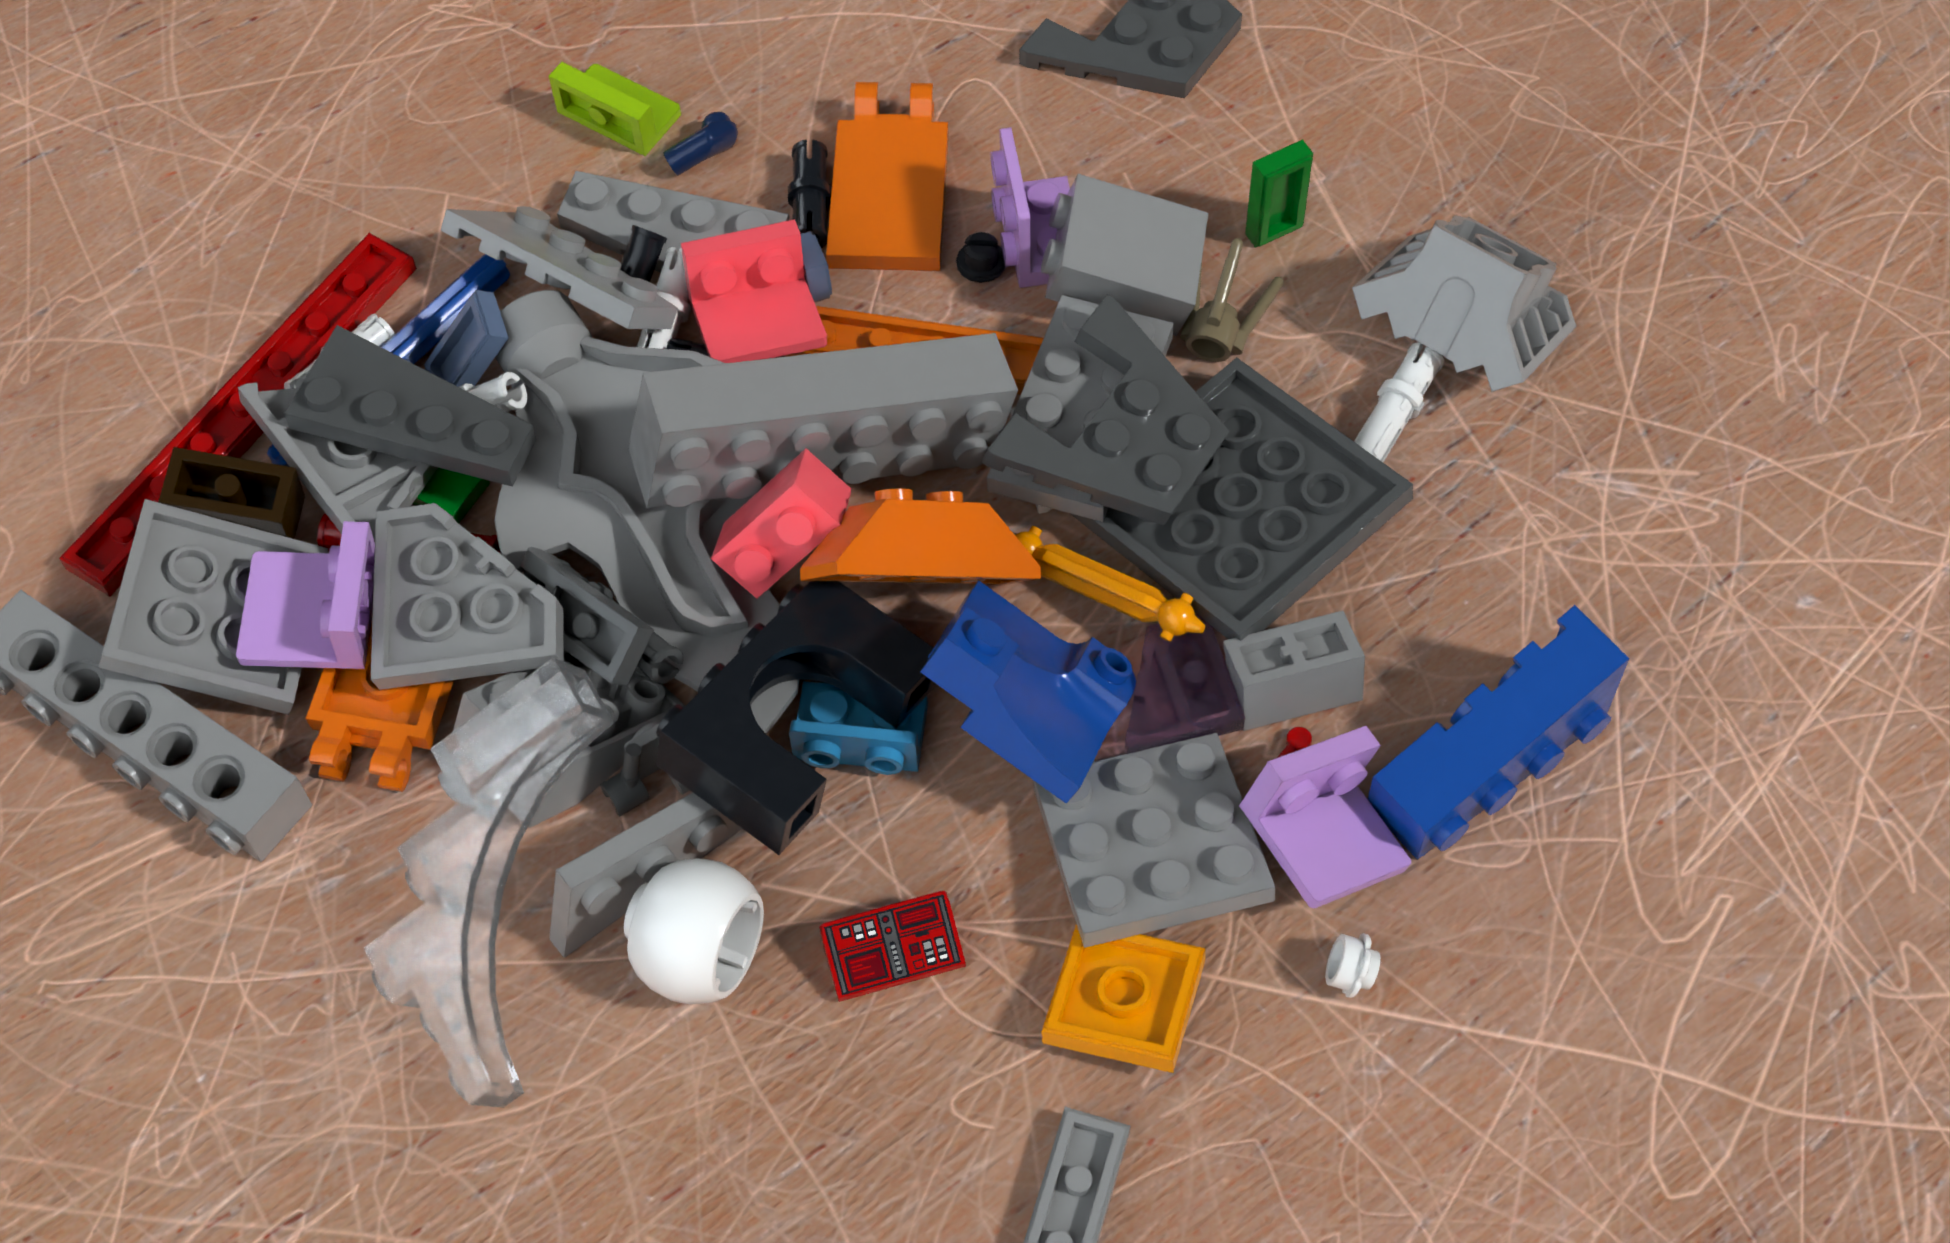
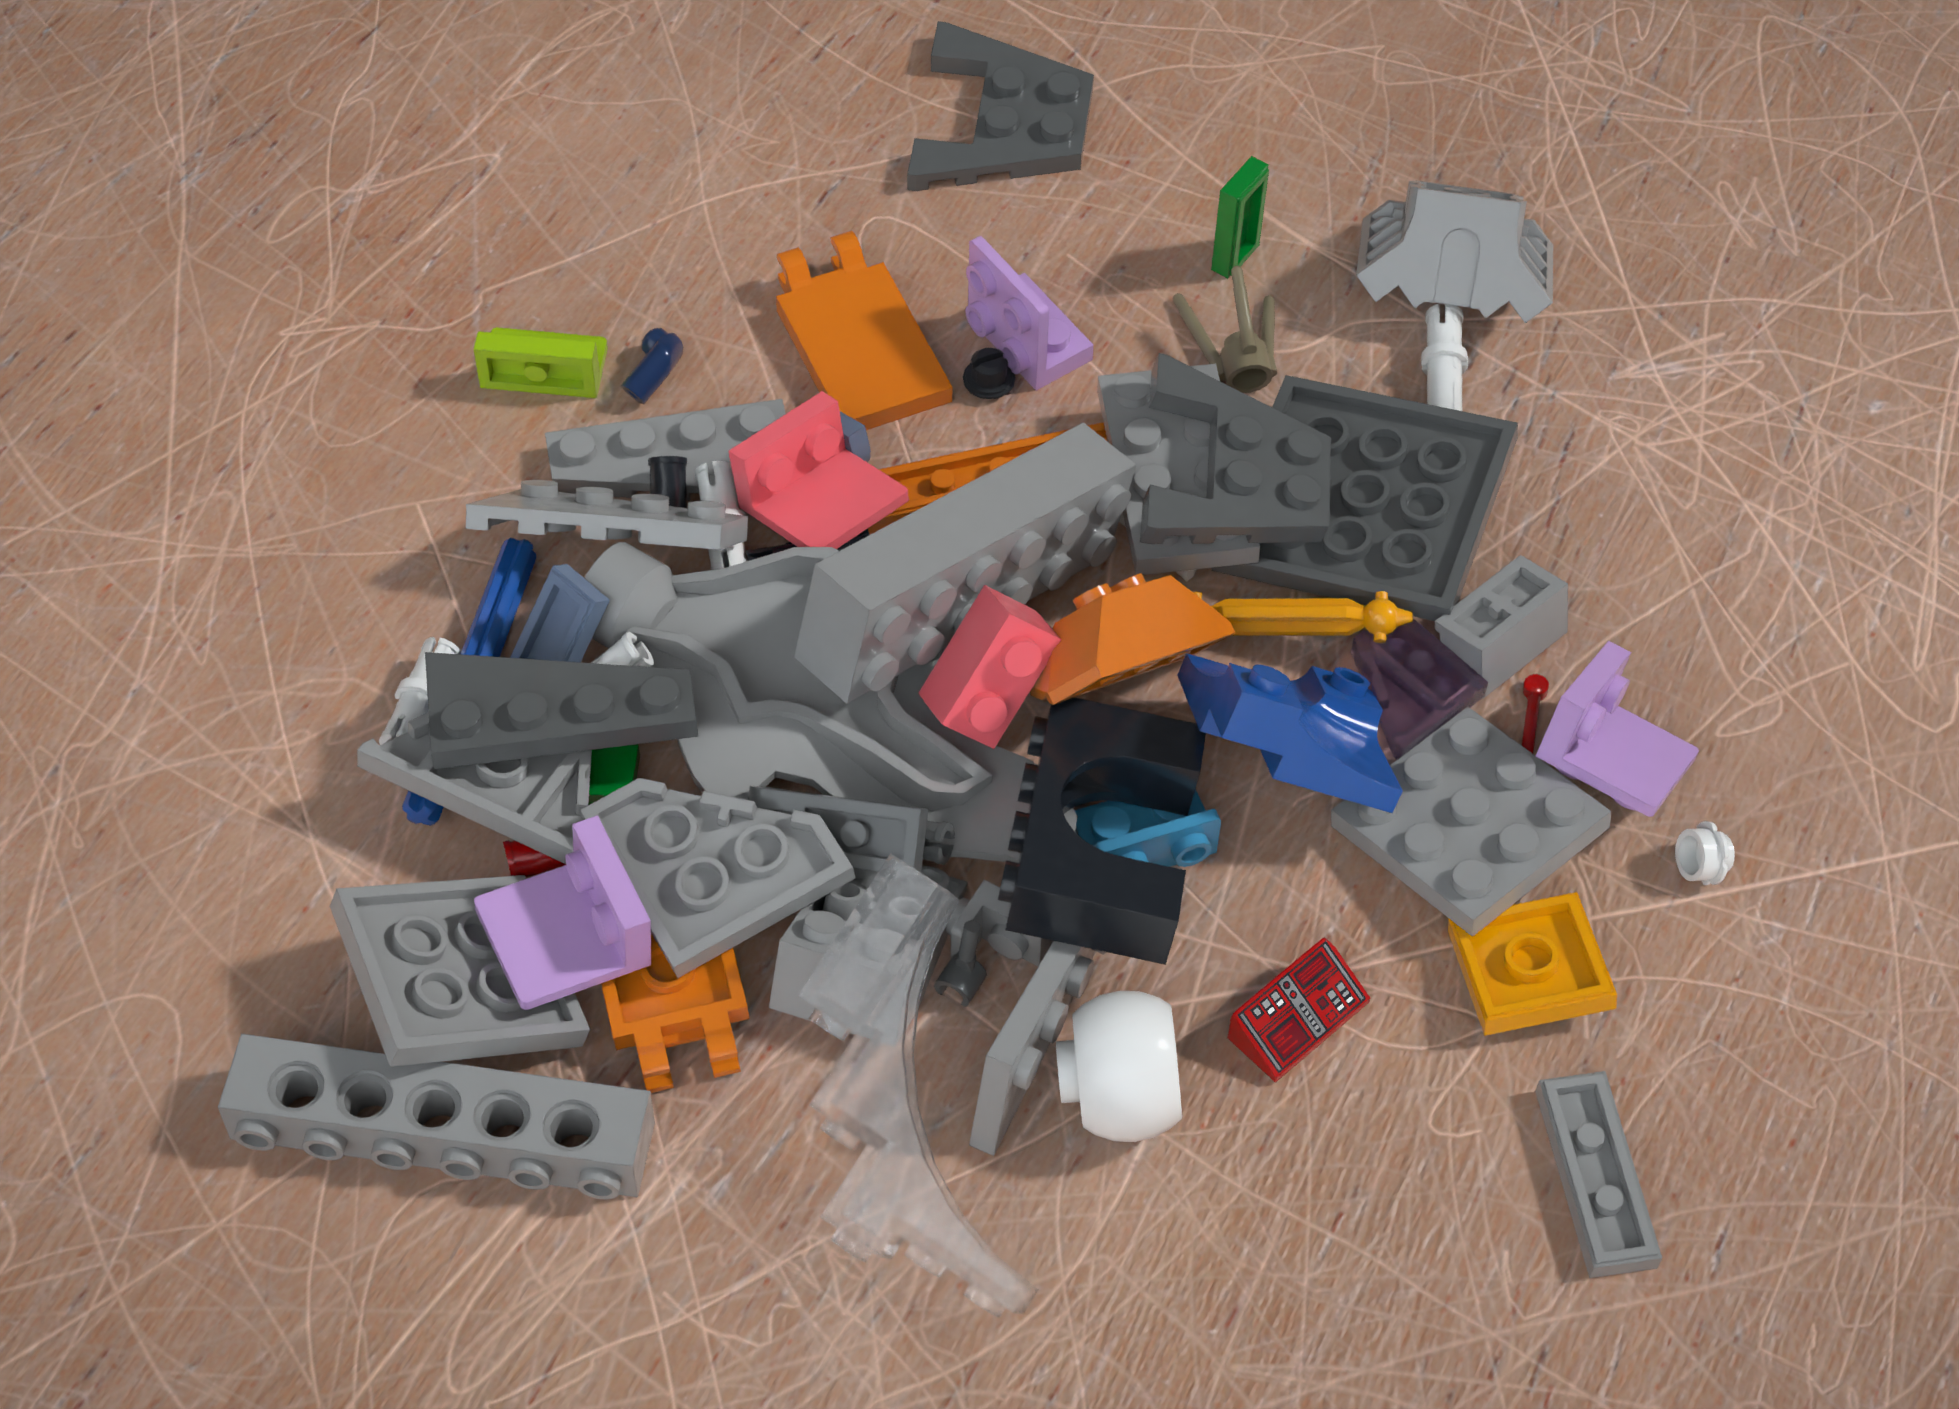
camera: 30 degrees left, 5 degrees down
(223, 425) = (336, 794): red tile -> none
(235, 490) = (408, 849): dark brown brick -> none
(809, 191) = (787, 371): black pin -> none
(1125, 247) = (1127, 311): light grey brick -> none
(1501, 737) = (1717, 607): blue wedge -> none

